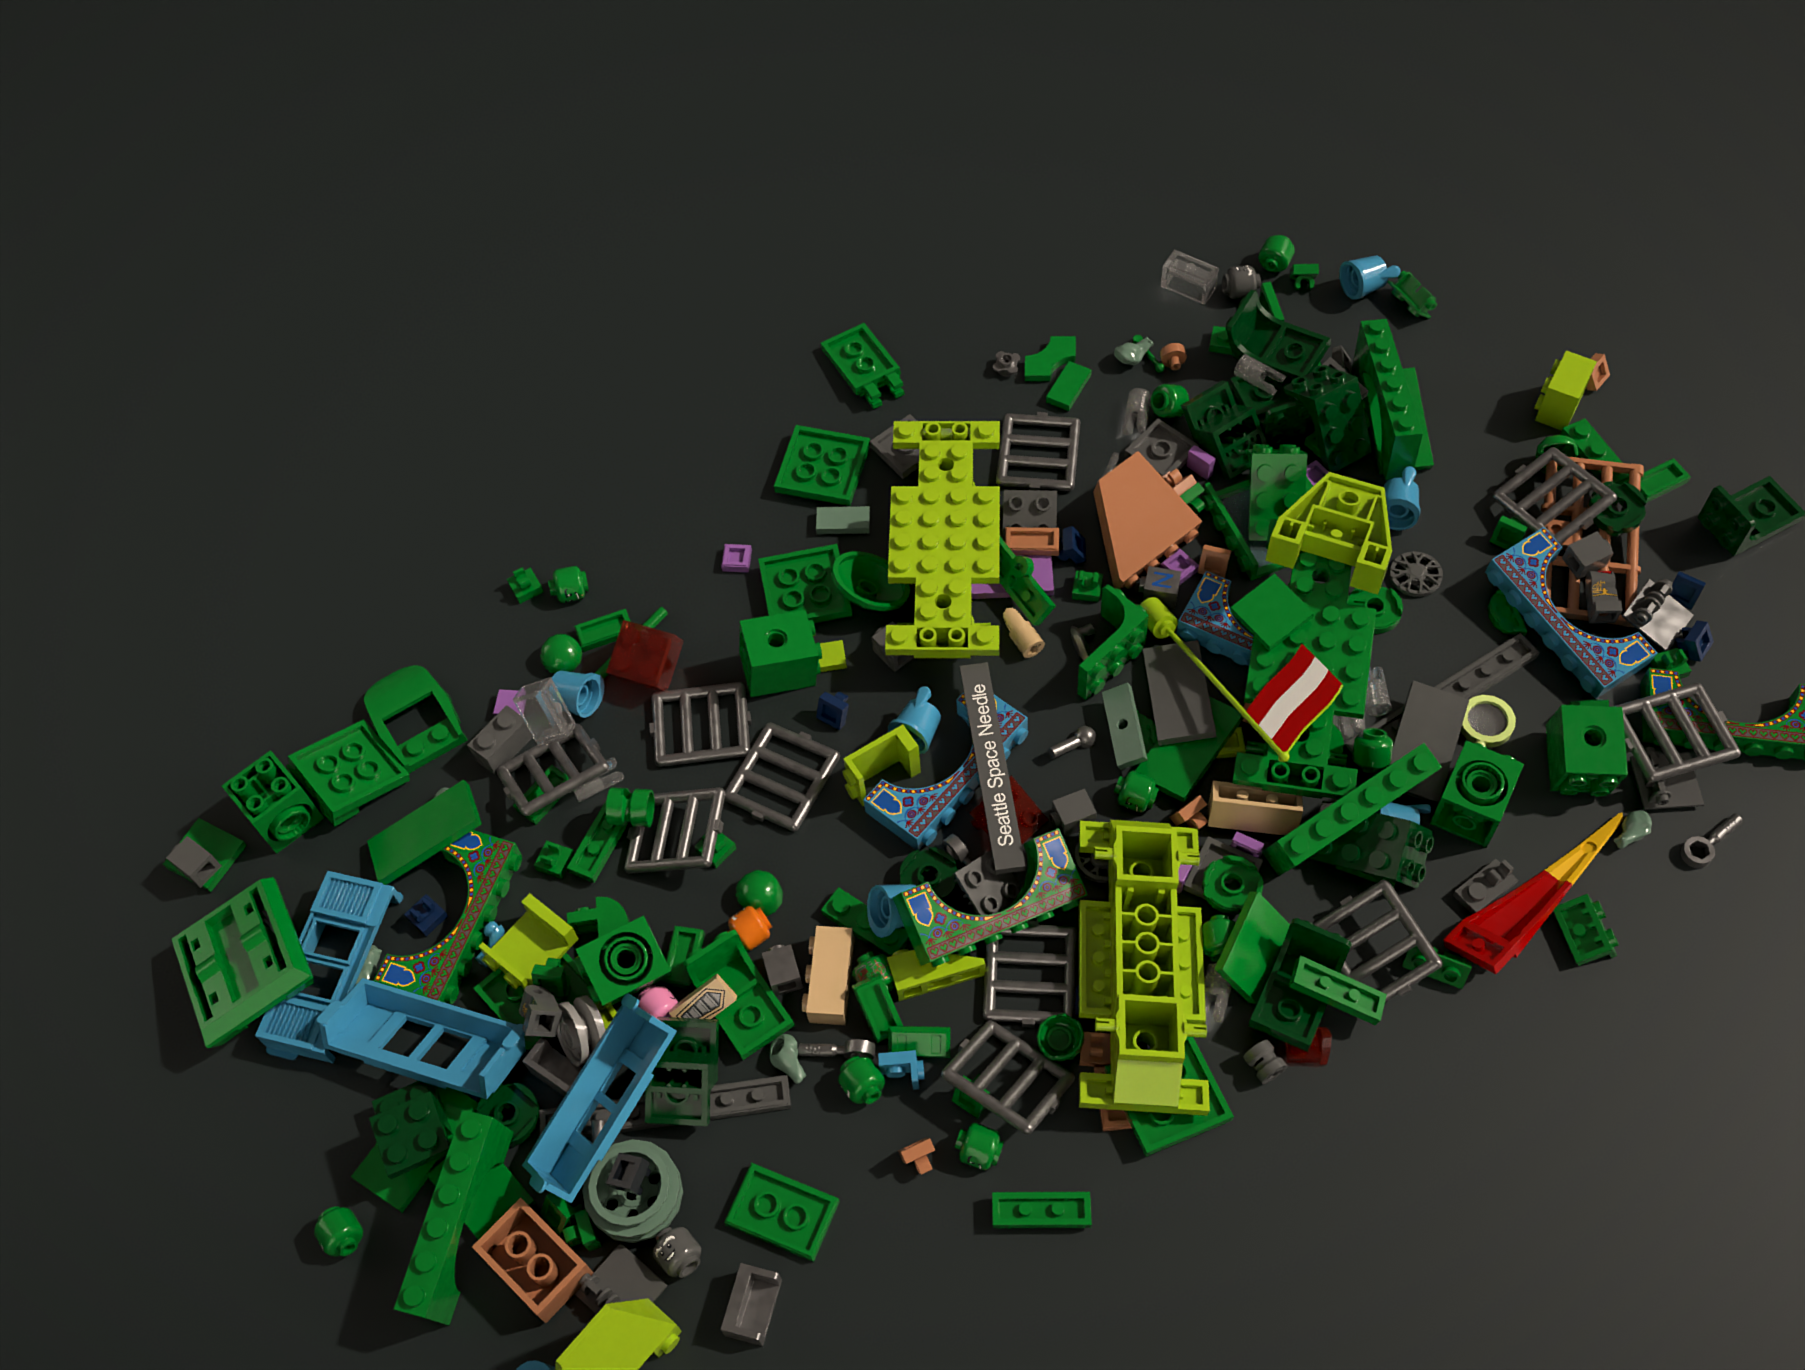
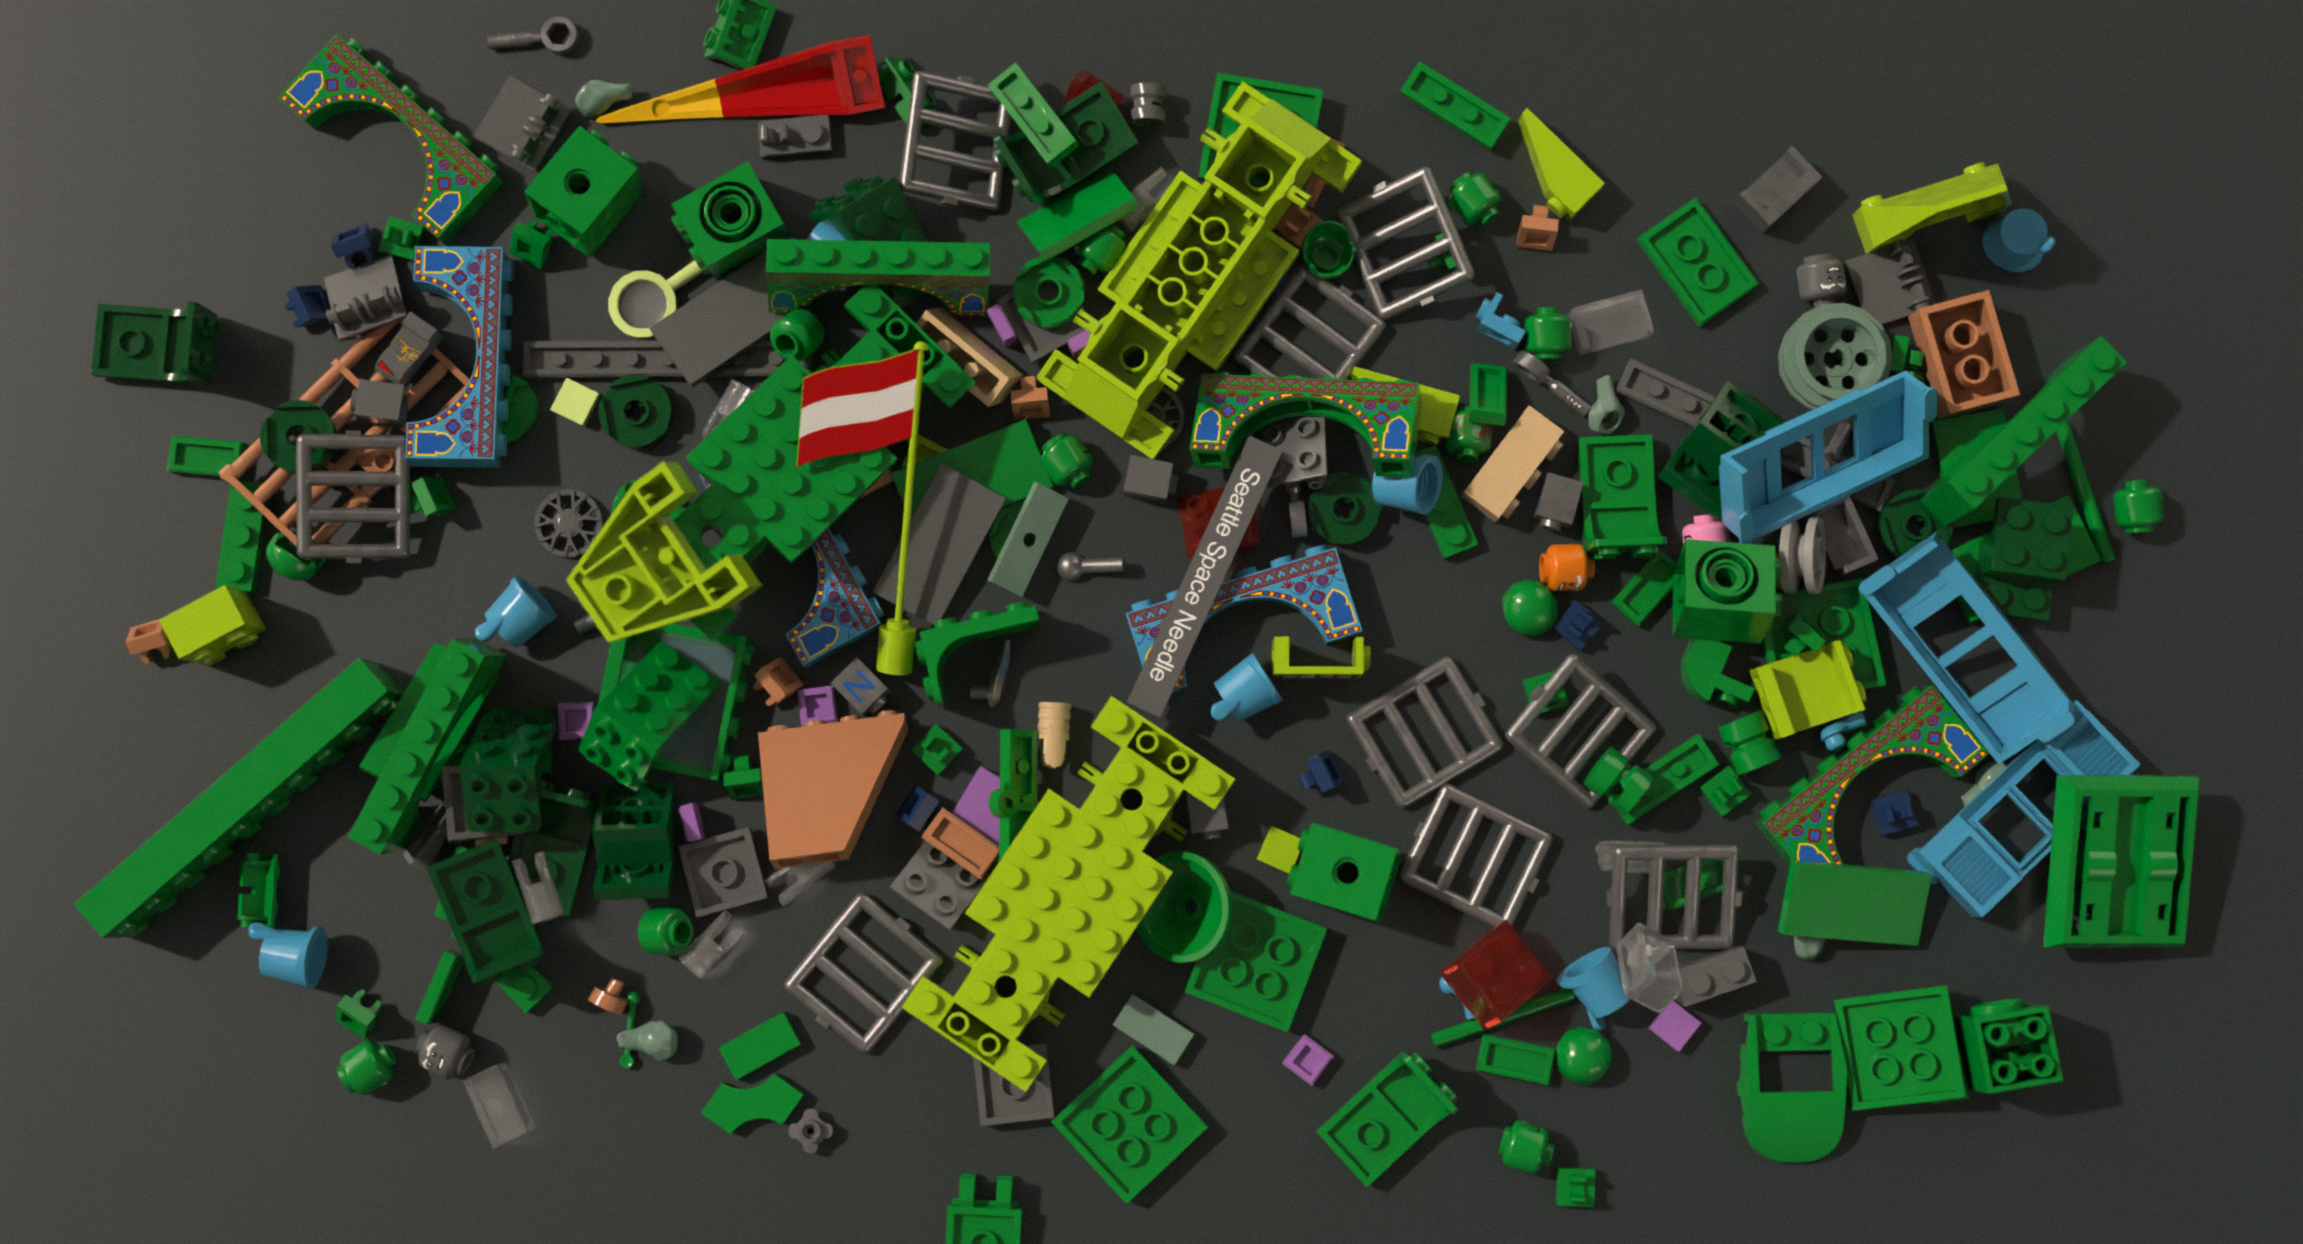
camera: 150 degrees left, 25 degrees up
(193, 861) = (2124, 1033): dark grey brick -> none
(218, 843) = (2104, 1048): green tile -> none
(379, 1215) = (2085, 493): none -> green bar
(540, 1012) = (1835, 595): dark grey leg -> none
(552, 891) = (1749, 742): none -> green wheel
(628, 1173) = (1838, 357): black tile -> none
(665, 553) = (1387, 1116): none -> green bracket
(705, 1001) = (1662, 505): tile -> none
(718, 902) = (1577, 625): none -> dark blue tile
(822, 1120) = (1610, 322): none -> clear panel
(925, 1207) = (1561, 174): none -> lime slope
(927, 1041) = (1466, 339): green tile -> none
(1178, 483) = (745, 804): nougat tile -> none
(1272, 612) = (800, 523): green tile -> none
(1431, 669) = (619, 399): none -> dark green plate
(1462, 325) = (240, 801): none -> green brick
(1475, 639) = (575, 402): none -> yellowish green tile
(1677, 766) = (476, 103): flat silver bar -> none

